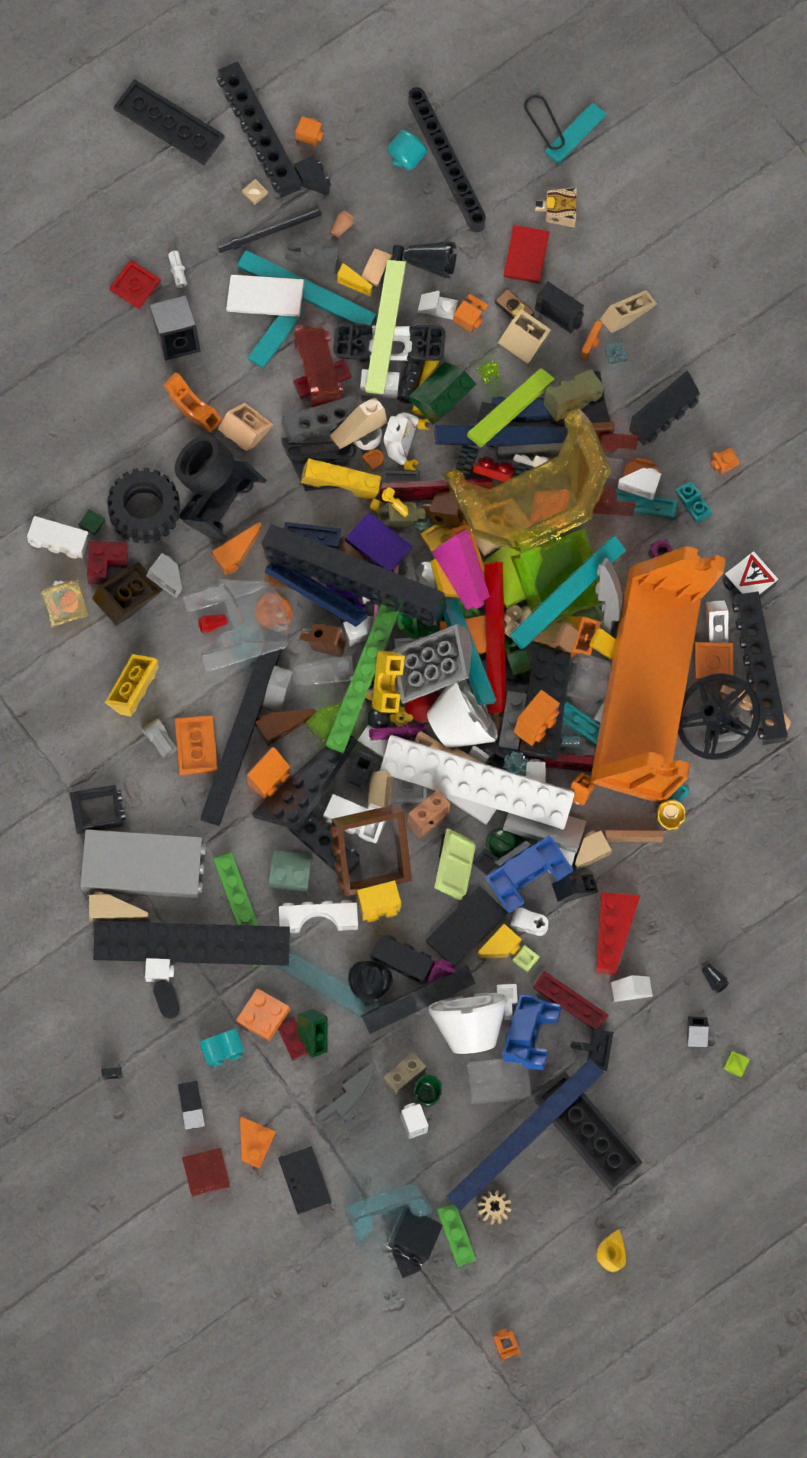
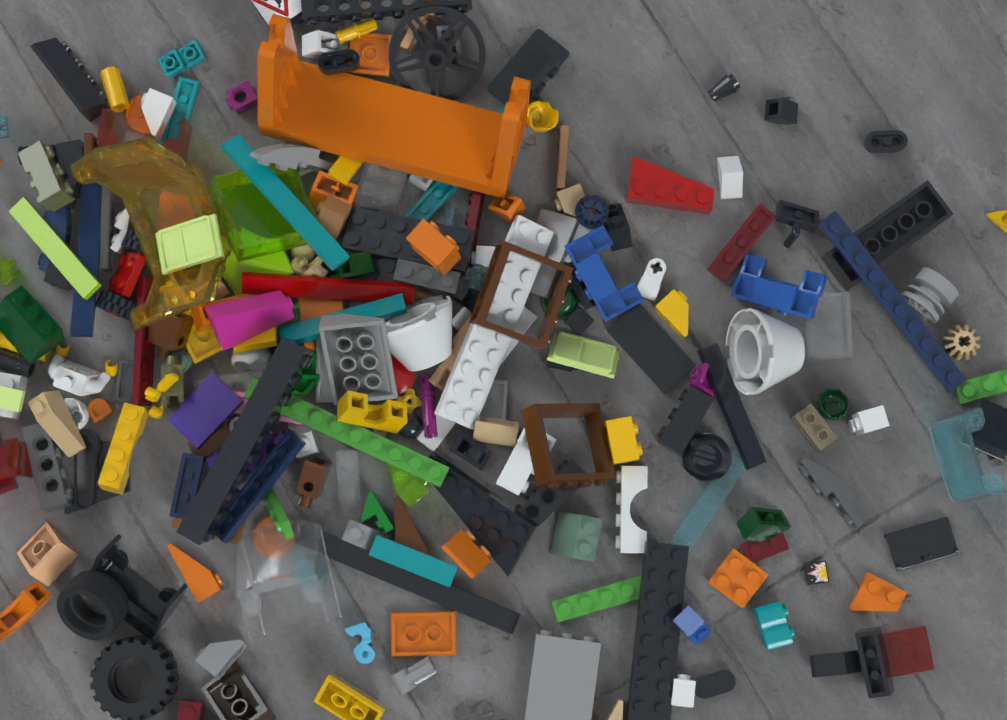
camera: 80 degrees left, 10 degrees up
(177, 694) = (364, 651): none -> medium azure leg
(194, 1138) = (874, 662): none -> black brick
(211, 622) = (281, 608): red cone -> none
(217, 970) = (692, 625): none -> arch
(259, 727) = (413, 561): none -> teal tile
(272, 1085) = (816, 572): none -> tile
(293, 609) = (277, 514): none -> bright green plate
(303, 694) = (374, 508): none -> green slope
(433, 809) = (527, 378): nougat window -> none
(510, 991) = (730, 307): white plate -> none
(511, 770) = (490, 286): none -> reddish brown window
(522, 514) = (189, 243): none -> yellowish green piece
(526, 958) = (690, 286): yellowish green tile -> none
(534, 1170) = (930, 295): none -> light grey wheel
(577, 865) = (582, 214): none -> dark blue gear
(659, 446) = (114, 89): none -> yellow axle
(678, 1129) = (884, 141): none -> black plate
(703, 632) = (339, 61): none -> black plate
(713, 801) = (534, 61): none -> black bracket
(724, 461) = (137, 20): orange bracket -> none
(732, 645) = (356, 31): none -> yellow axle
(736, 1064) = (817, 75): lime tile -> none

